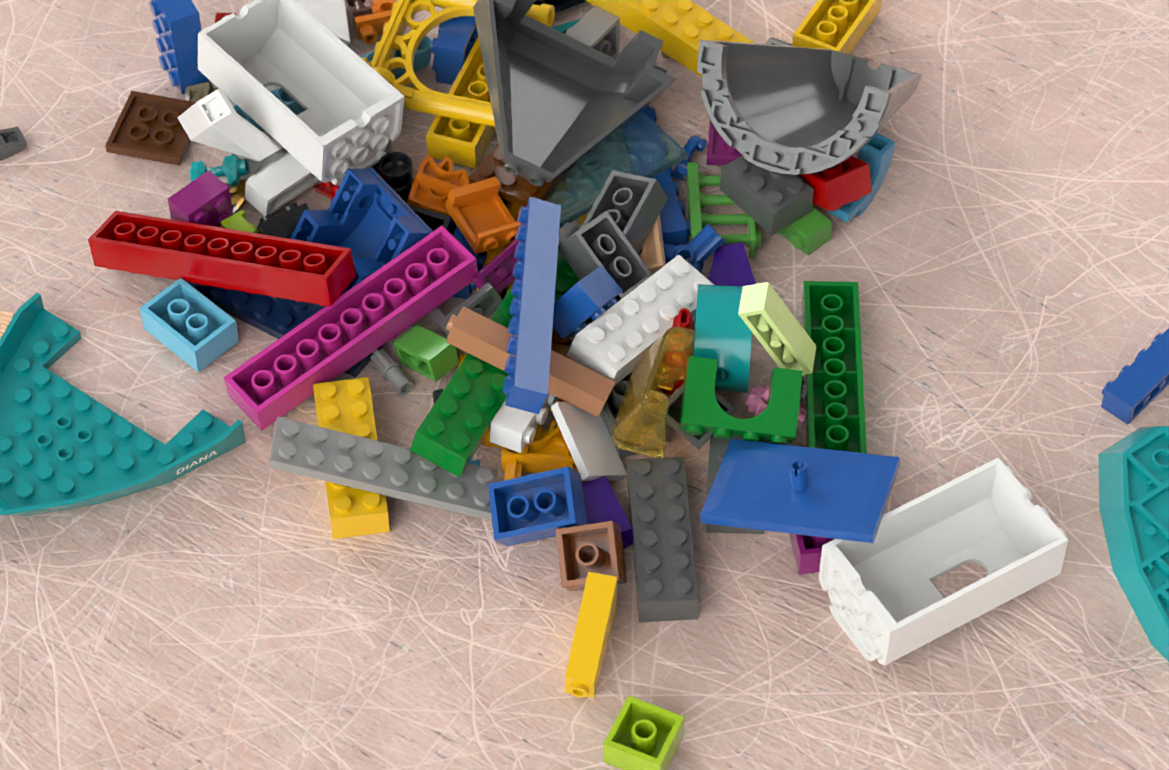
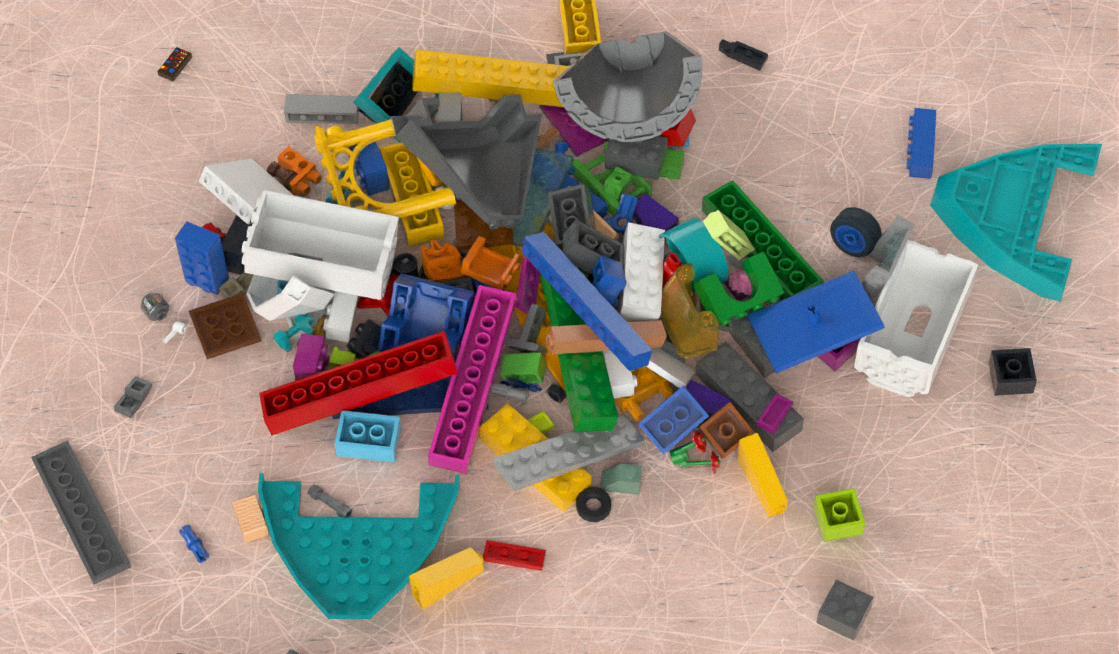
camera: 35 degrees left, 5 degrees up
(86, 356) = (317, 493): none -> flat silver bar
(103, 68) = (154, 306): none -> dark grey head
(107, 102) = (178, 327): none -> white hand
(128, 523) = (445, 576): none -> yellow slope
(232, 551) = (514, 555): none -> red tile
(375, 565) = (593, 515): none -> black tyre
(396, 427) = (542, 422): none -> neon yellow tile
(421, 381) = (519, 384): none -> clear blue piece
(429, 543) = (622, 479): none -> sand green slope
(542, 548) = (681, 453): none -> plant
(663, 570) = (774, 413): none -> magenta tile
(685, 126) = (544, 140): none -> nougat axle
(716, 210) = (617, 183): none -> bright green brick
(961, 425) = (855, 232): none -> black wheel
(993, 444) = (887, 252): none -> light grey panel
(1011, 157) = (743, 53): none -> black hinge
(1021, 706) = (1012, 371): none -> black brick

